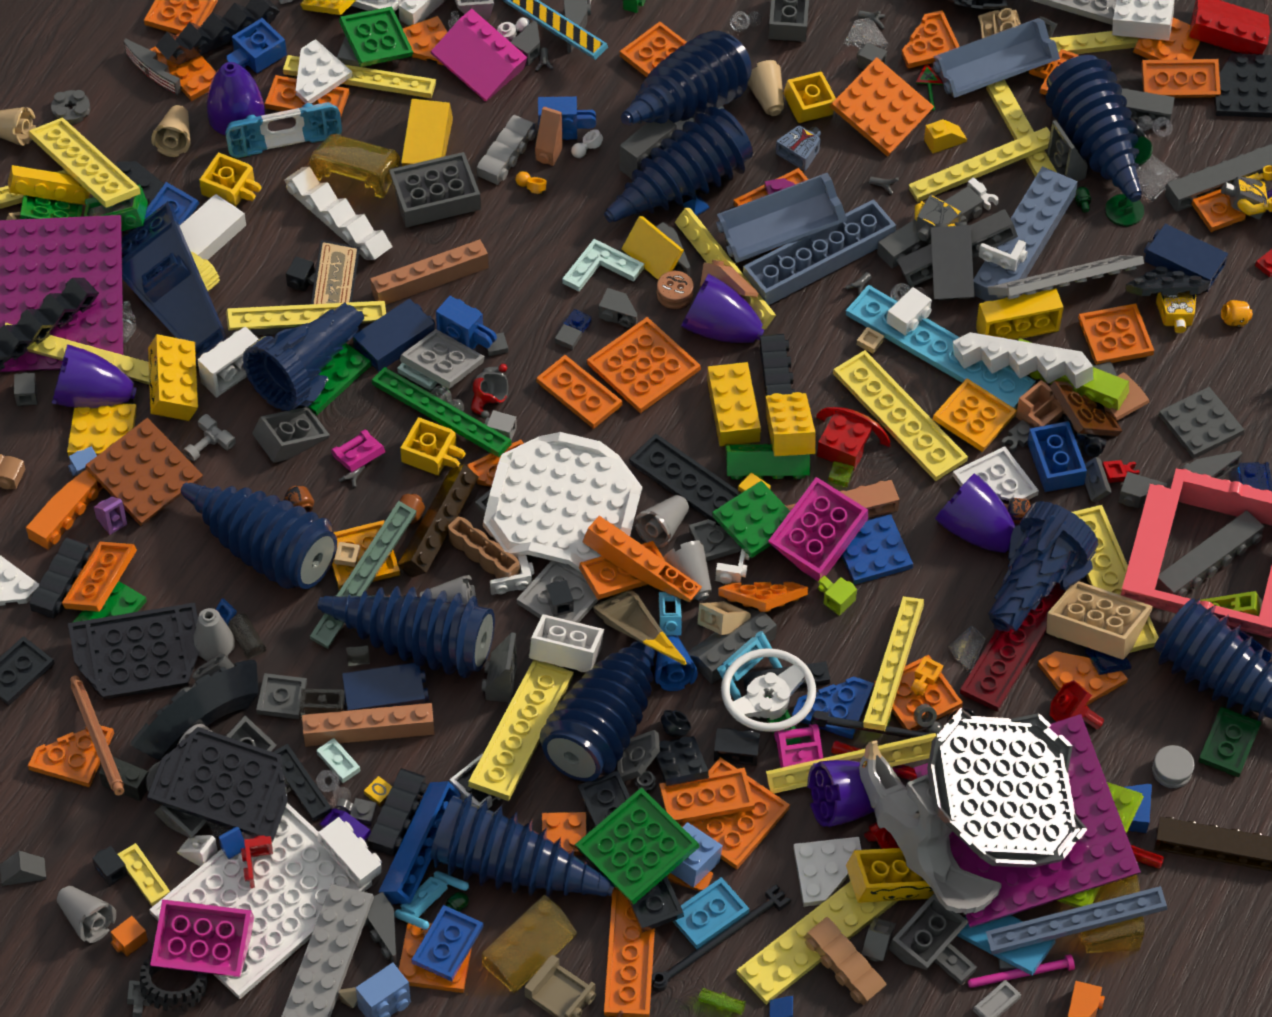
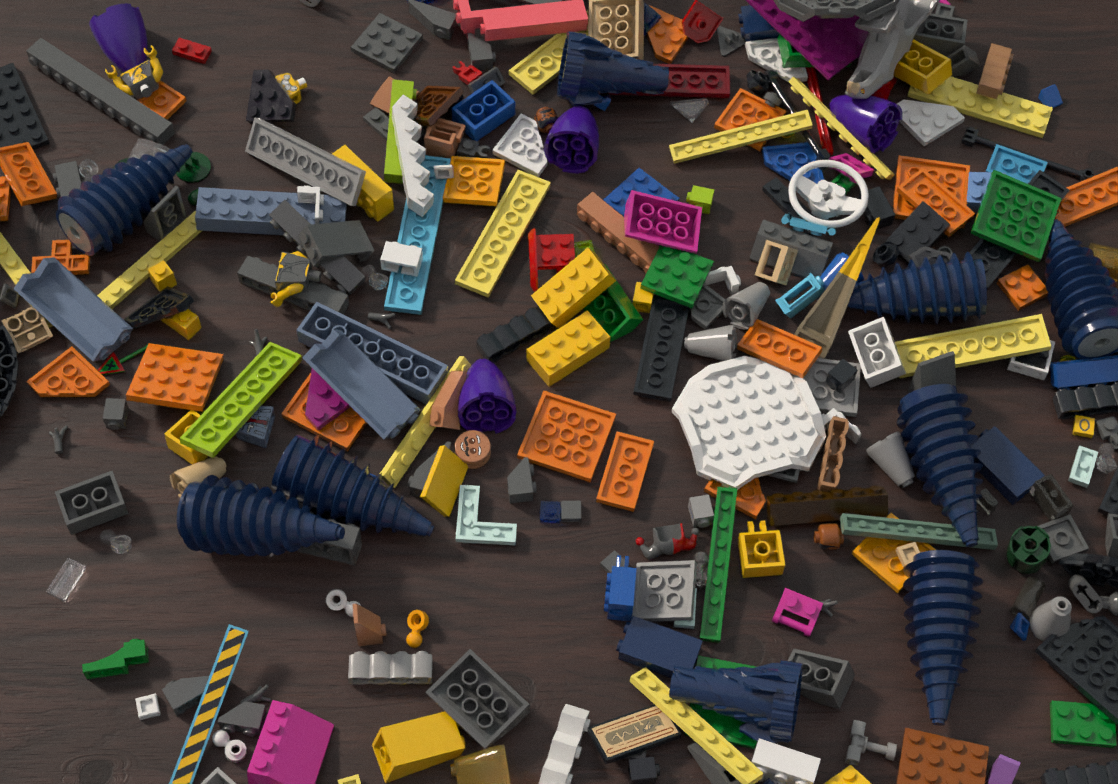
camera: 120 degrees left, 5 degrees up
(99, 576) = (1066, 745): orange plate -> none
(292, 642) = (1019, 549): none -> dark green cylinder
(300, 497) = (879, 628): dark orange head -> none
(368, 724) = (1041, 455): nougat brick -> none
(430, 272) = (575, 656): nougat brick -> none
(571, 117) = (333, 632): blue brick -> none
(638, 560) = (773, 332): orange slope -> none
(651, 48) = (197, 595): orange plate -> none
(722, 1001) = (1073, 132): clear neon green pin -> none
(763, 594) = (737, 245): orange plate -> none
(824, 136) = (240, 400): none -> lime plate
(865, 31) = (86, 433): clear slope -> none
(870, 340) = (439, 283): tan plate -> none
(928, 672) = (734, 113): light orange plate -> none
(964, 120) = (162, 305): none -> black plate
(980, 165) = (202, 278): light yellow plate -> none
(980, 190) = (232, 269): white plate -> none
(997, 388) = (444, 171): none -> white slope
(1000, 134) = (162, 276): none -> yellow brick
(1116, 334) = (333, 122): orange plate -> none
(1185, 253) = (226, 104): dark blue brick -> none
(1236, 313) = (267, 52): light orange head -> none

